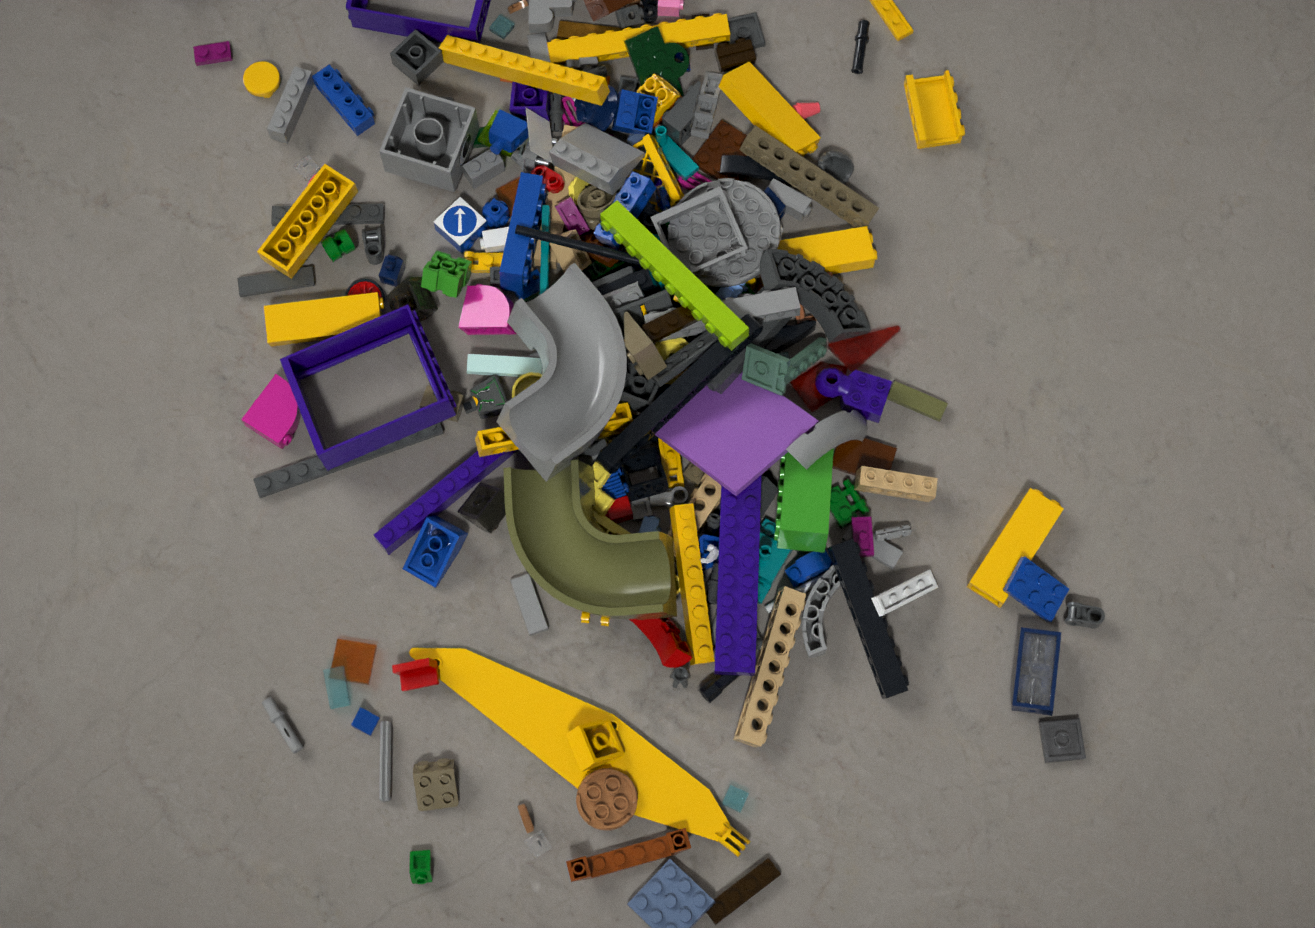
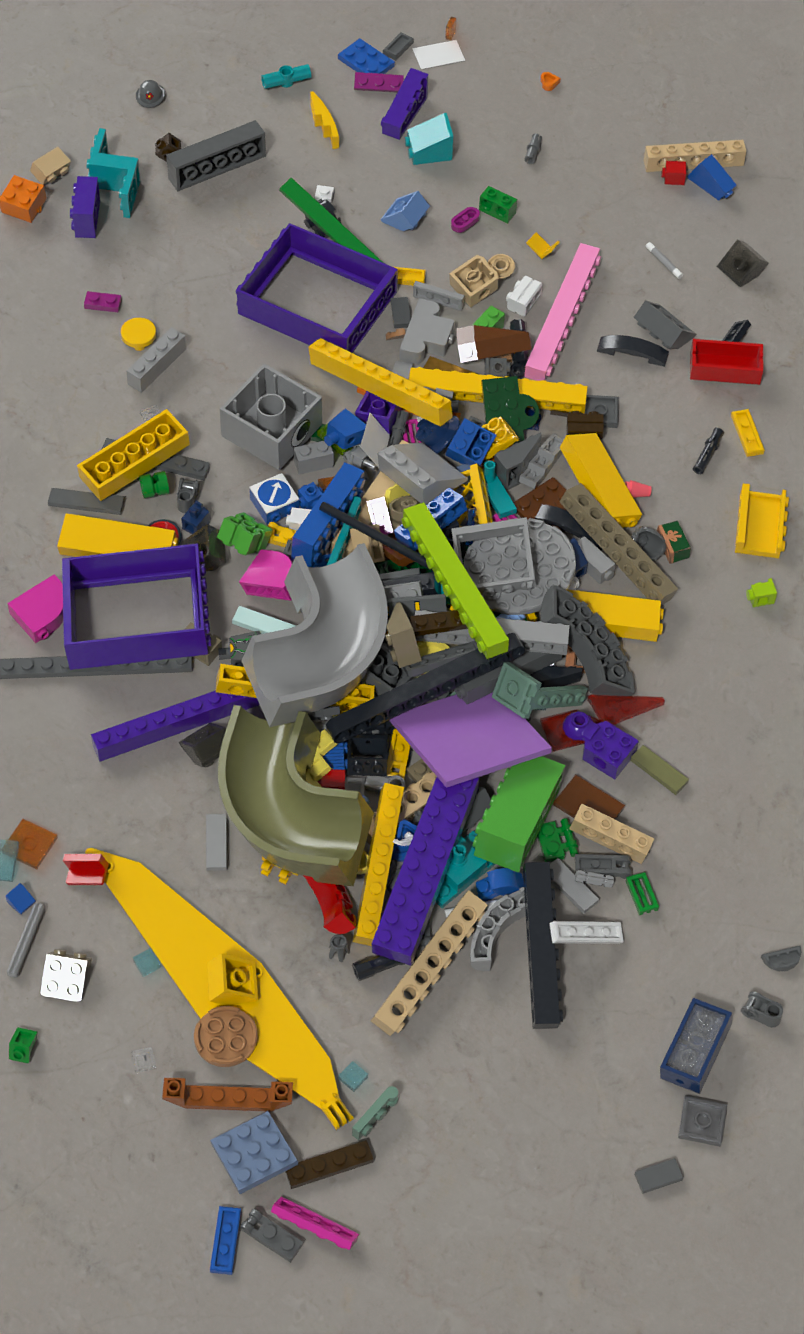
camera: 15 degrees right, 15 degrees down
(343, 100) = (206, 369): blue brick -> none
(416, 57) = (286, 350): dark grey brick -> none
(434, 550) = (144, 767): blue slope -> none
(501, 27) = (374, 348): clear light blue tile -> none
(506, 746) = (146, 962): none -> clear light blue tile
(525, 818) = (140, 1031): medium nougat tile -> none
(549, 176) = (373, 482): red plate -> none
(769, 829) = (375, 1112): none -> sand green plate
(827, 435) = (556, 762): light grey brick -> none
(860, 156) = (675, 542): none -> dark green piece
(863, 535) = (563, 871): magenta plate -> none
(896, 516) = (604, 864): none -> dark grey plate
(945, 527) = (647, 908): none -> green tile
(957, 187) = (762, 593): none -> lime brick
(1018, 539) = (712, 927): yellow brick -> none
(1036, 589) = (720, 969): blue plate -> none
(1039, 806) = (658, 1176): none -> dark grey tile
(1087, 558) = (783, 959): none -> dark grey tile

